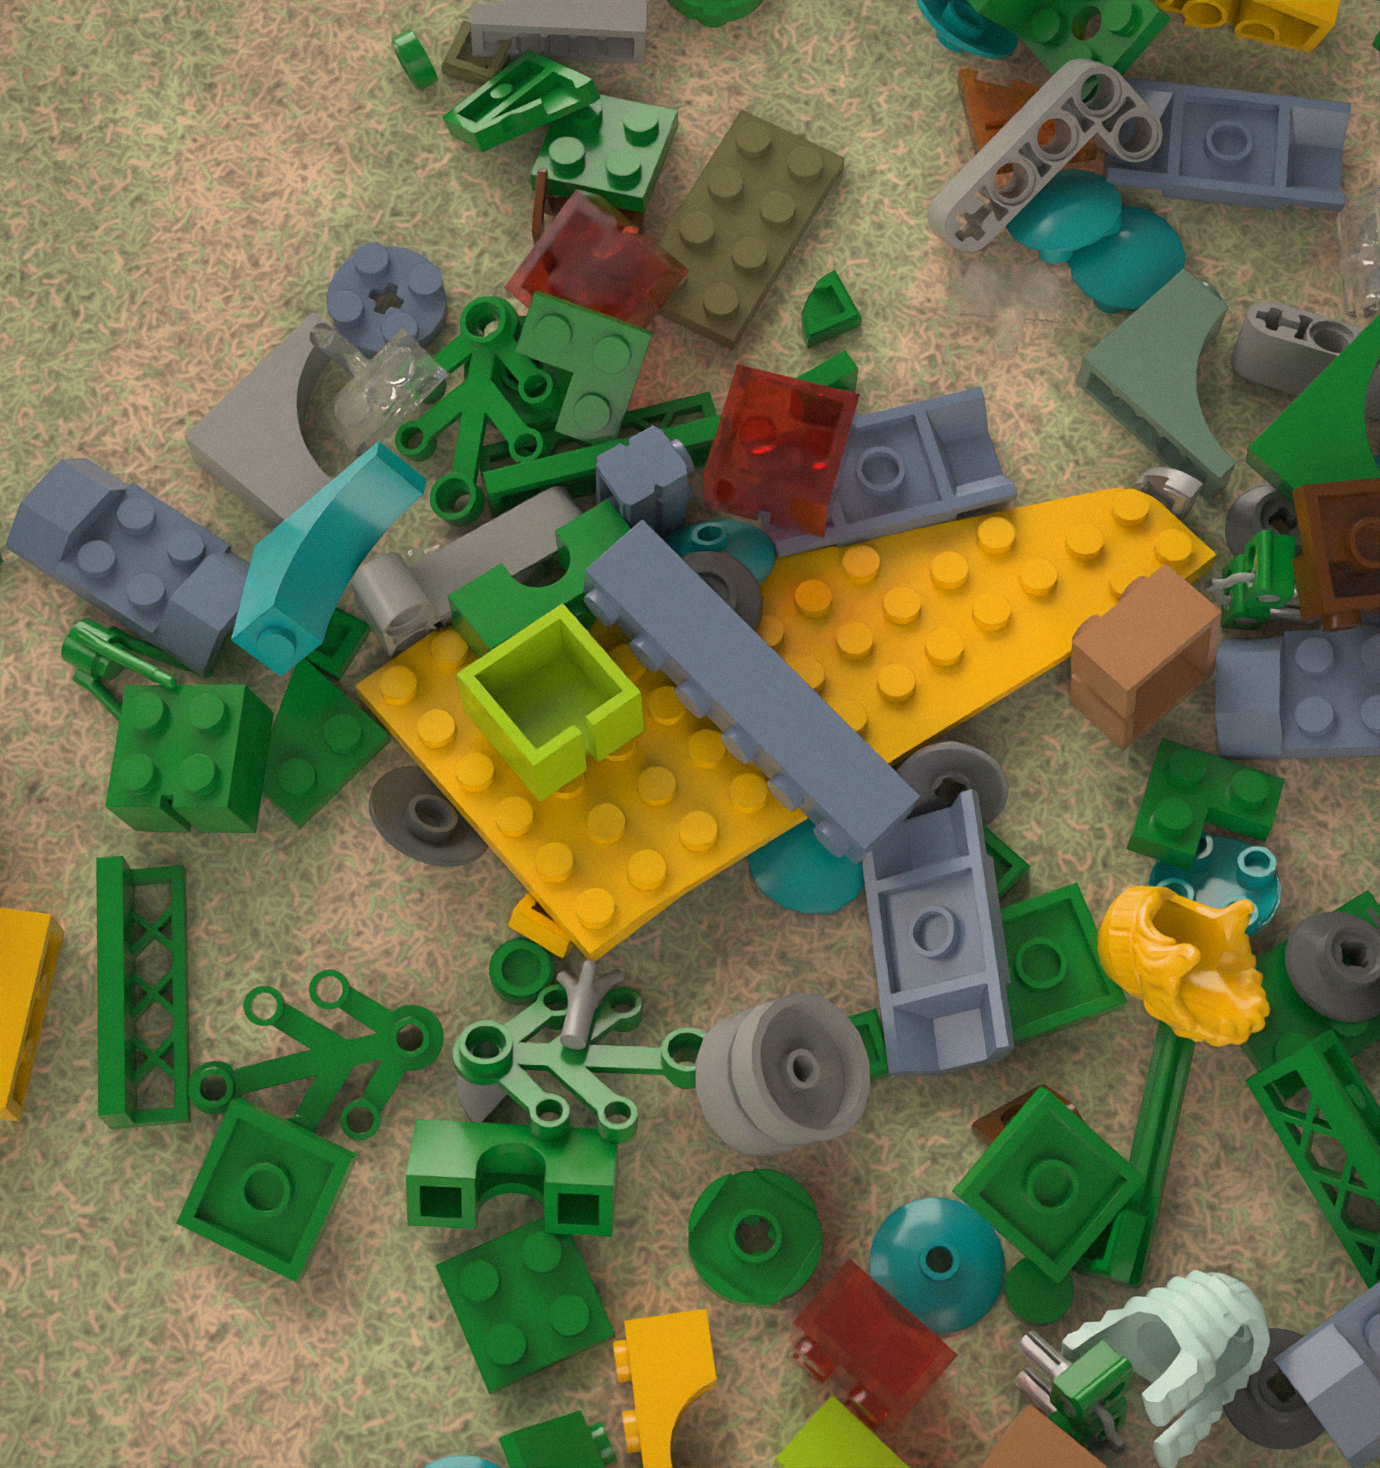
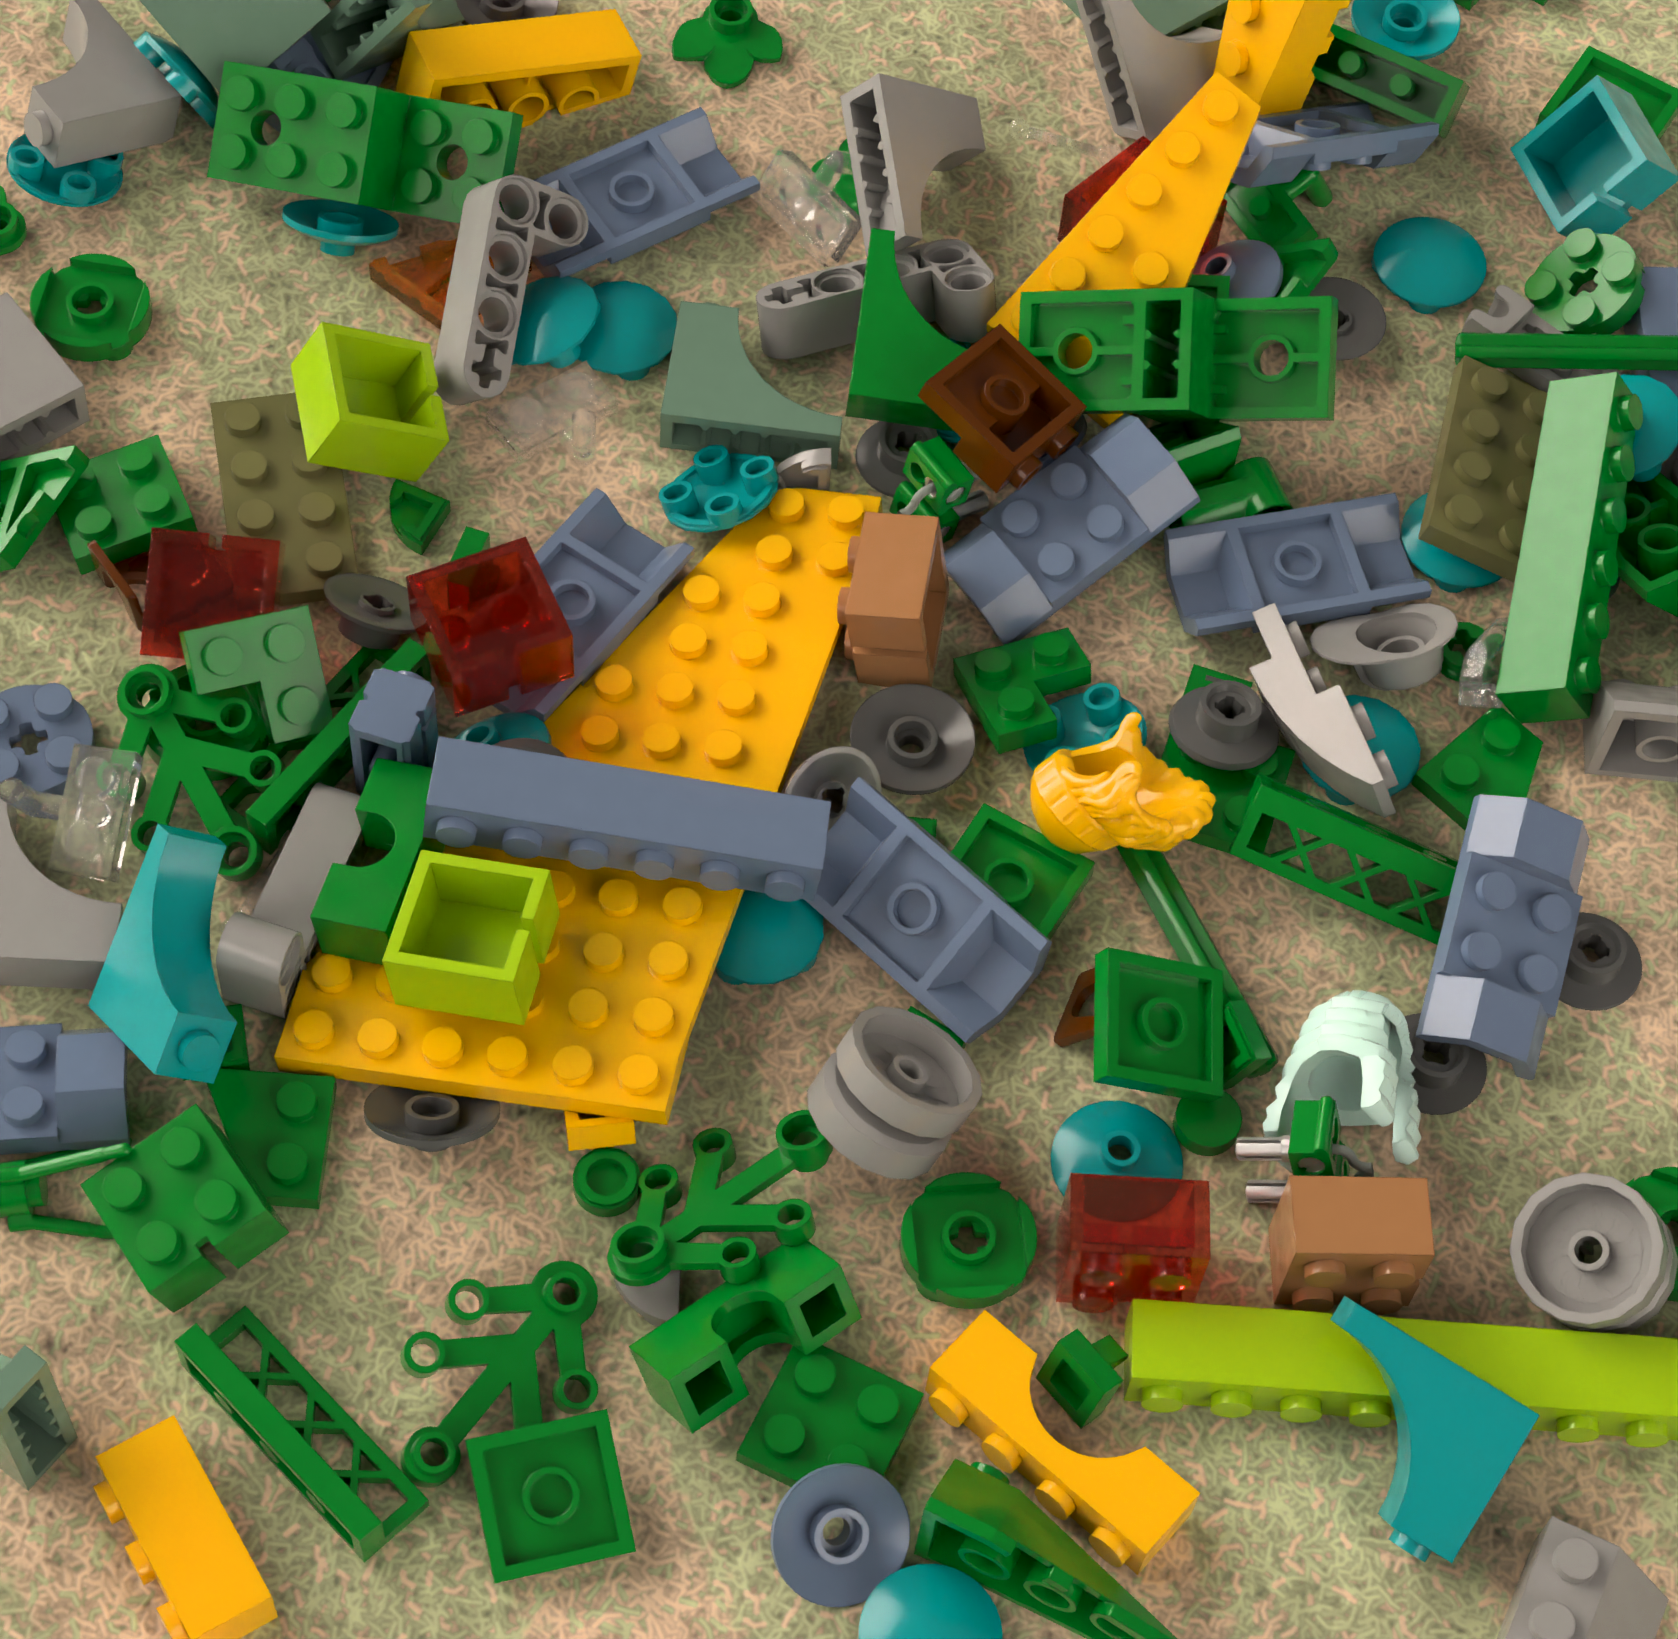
camera: 45 degrees left, 10 degrees down
(437, 1415) = (865, 1552): none -> sand blue dish
(582, 1002) = (684, 1160): light grey bar -> none
(710, 360) = (370, 609): none -> dark grey piece
(749, 1421) = (1083, 1375): none -> green tile
(846, 184) = (369, 402): none -> lime piece
(1071, 756) = (916, 717): none -> dark grey dish
(1086, 457) = (719, 490): none -> teal dish

